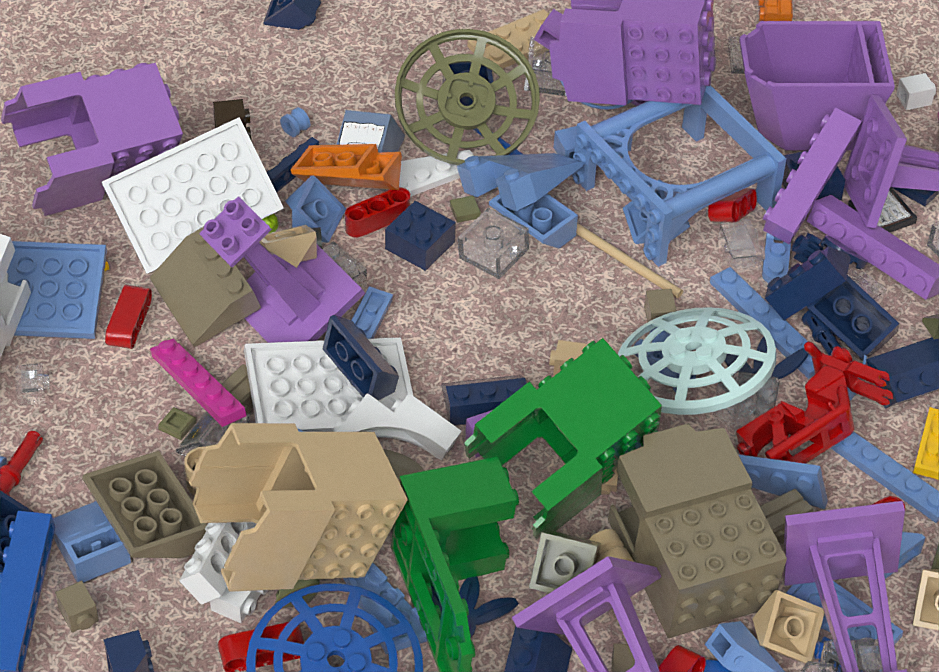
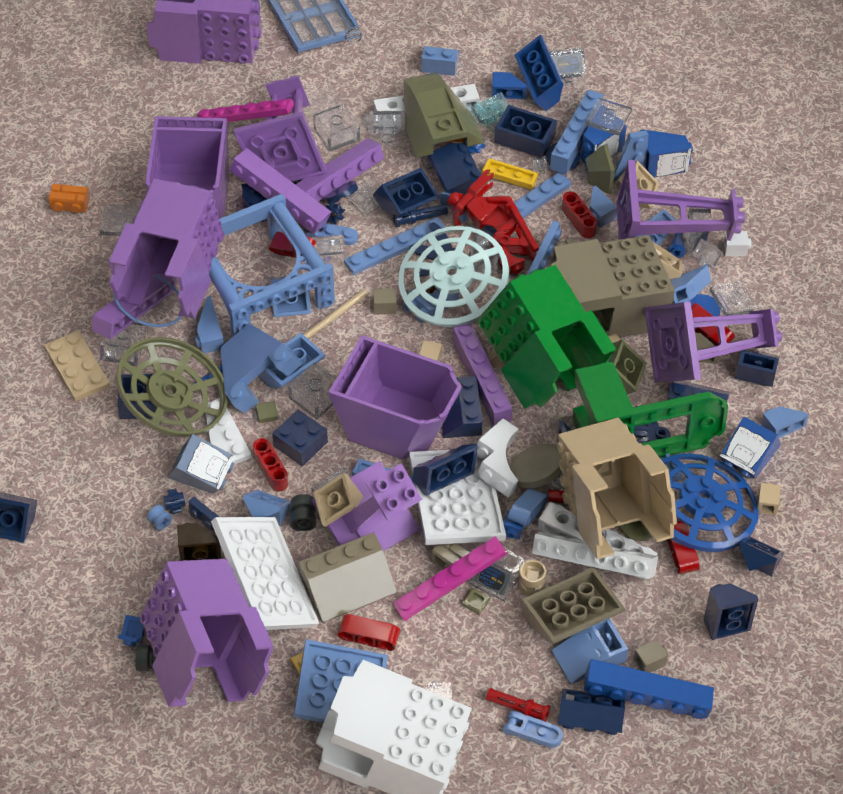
camera: 85 degrees left, 5 degrees up
(318, 129) = (174, 501): none -> dark blue gear
(350, 166) = (233, 472): orange slope -> none
(463, 294) = (393, 397): none -> medium lavender windscreen
(807, 281) = (384, 207): dark blue slope -> none

